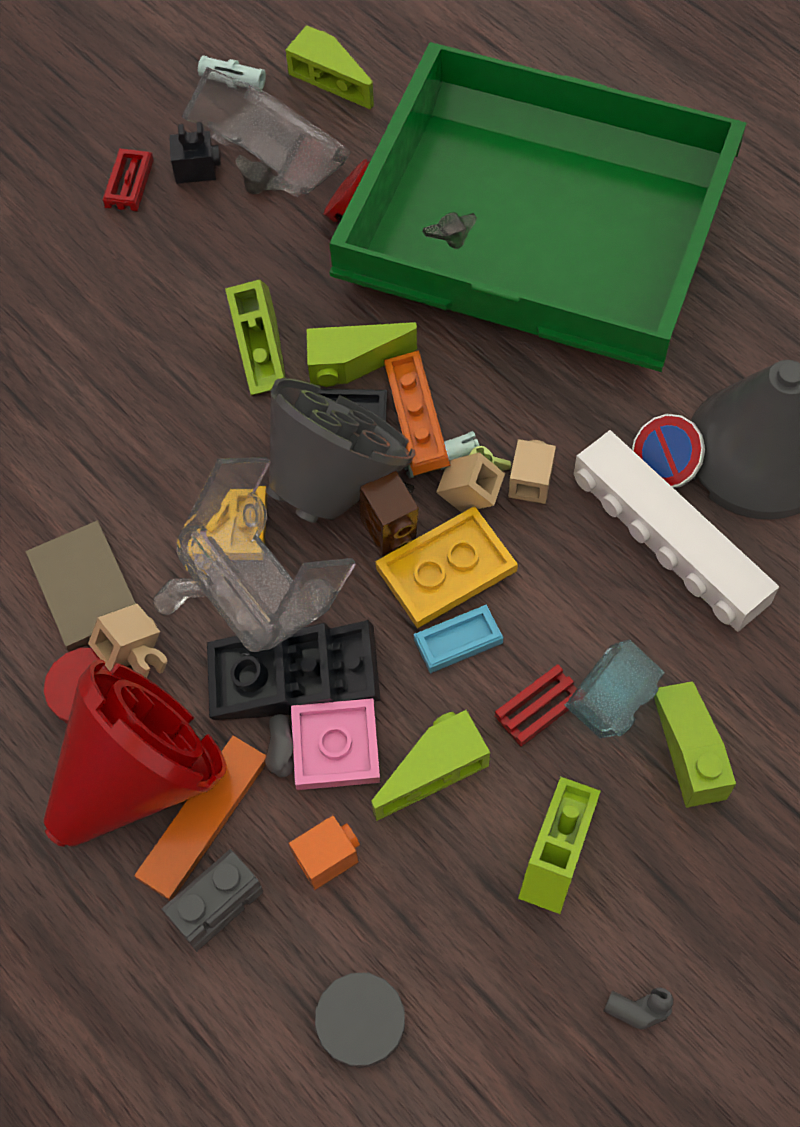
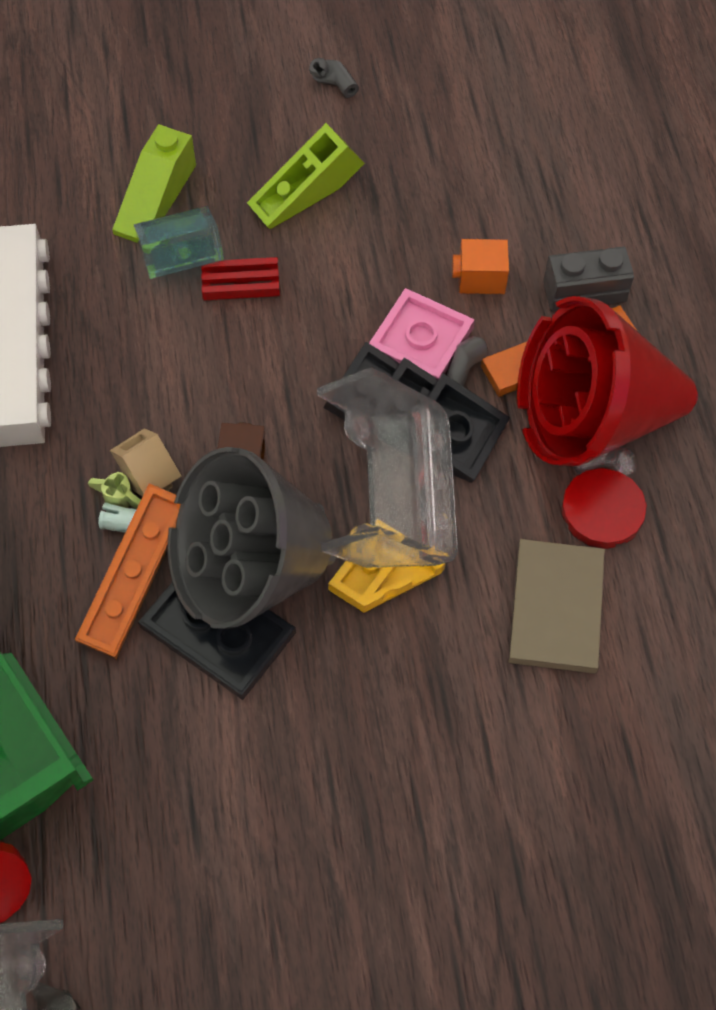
camera: 150 degrees left, 0 degrees up
(128, 639) = (546, 508): tan brick -> none
(175, 593) = (481, 541): clear arm -> none
(256, 334) = (218, 766): lime slope -> none
(351, 352) = (143, 680): lime slope -> none
(360, 1020) = (525, 167): dark grey tile -> none
(439, 759) = (355, 277): lime slope -> none
(446, 566) = (199, 405): yellow plate -> none
(458, 638) = (260, 363): medium azure tile -> none
(531, 471) = (80, 451): tan brick -> none

